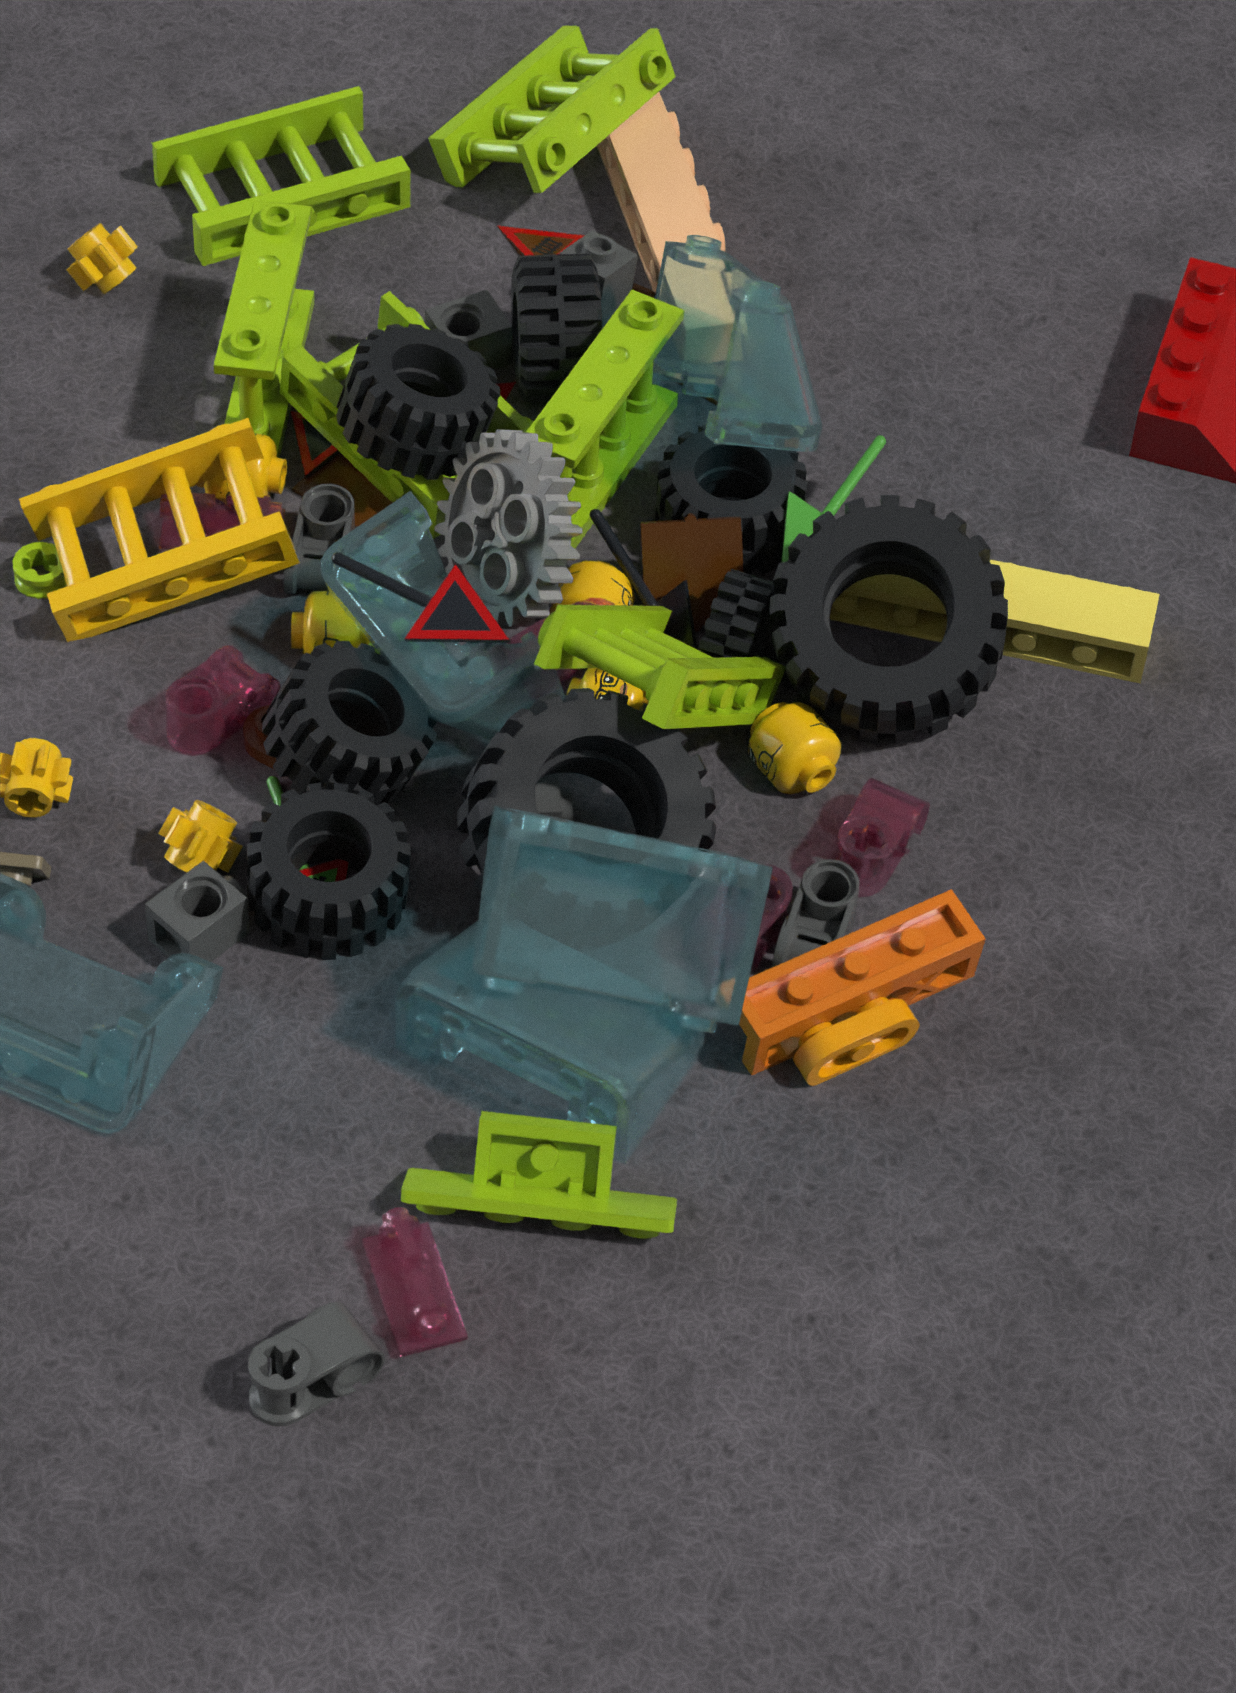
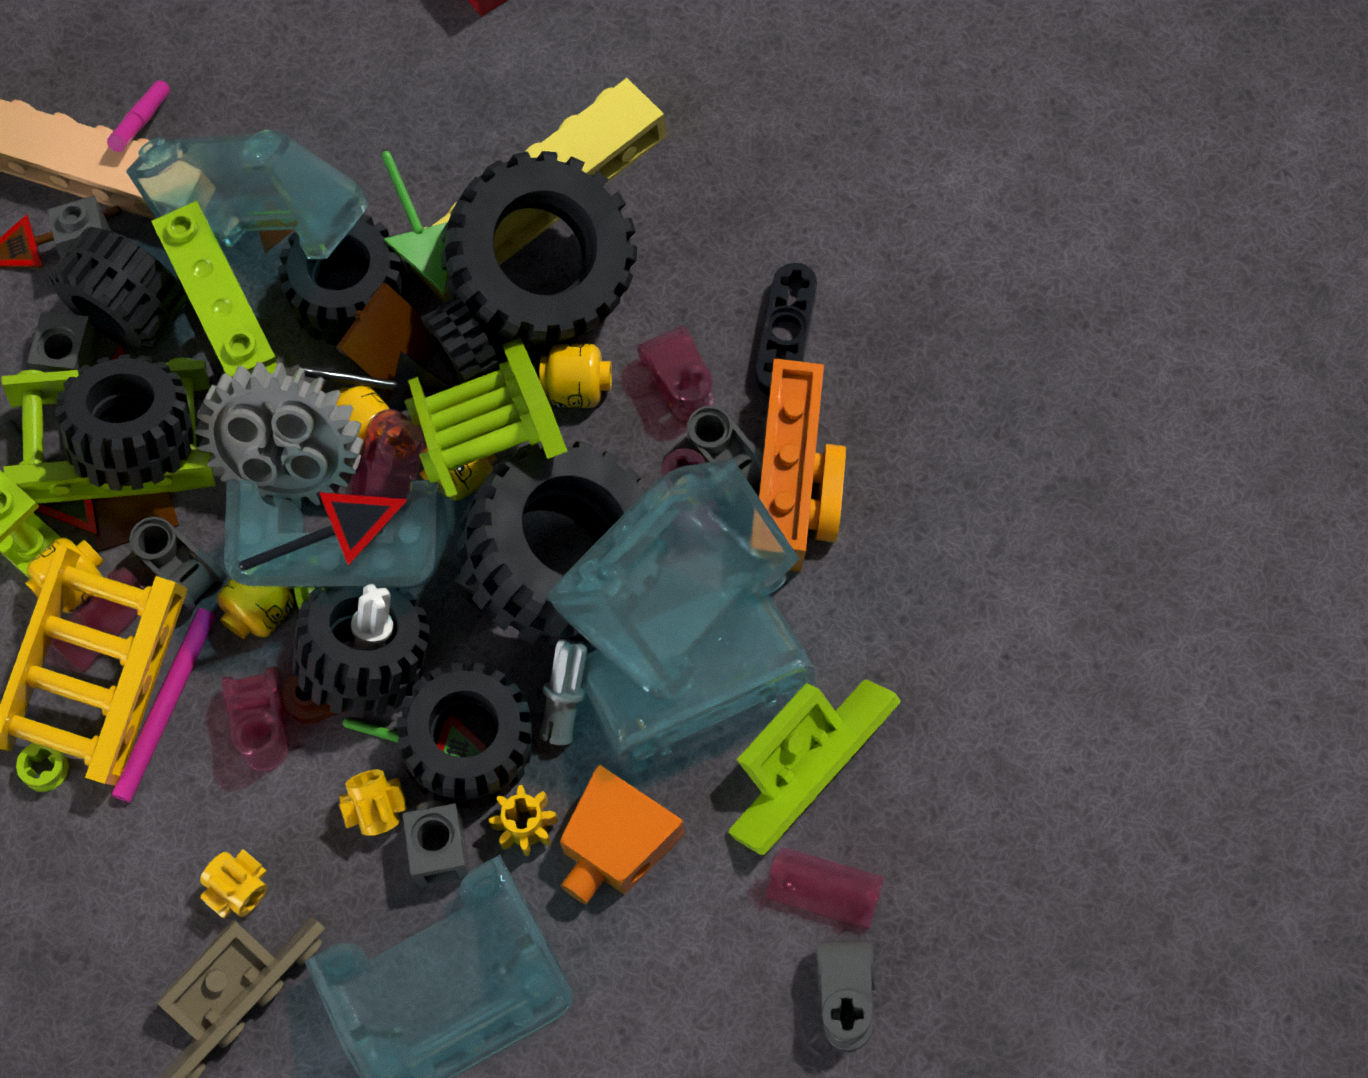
camera: 45 degrees left, 15 degrees up
(175, 627) = (164, 705): none -> dark pink bar
(280, 976) = (536, 824): none -> yellow gear
(321, 1063) = (615, 836): none -> orange torso
(376, 709) = (372, 621): none -> white axle
(432, 927) = (563, 692): none -> light grey axle
(760, 245) = (138, 116): none -> dark pink piece
(1029, 887) = (779, 297): none -> black beam

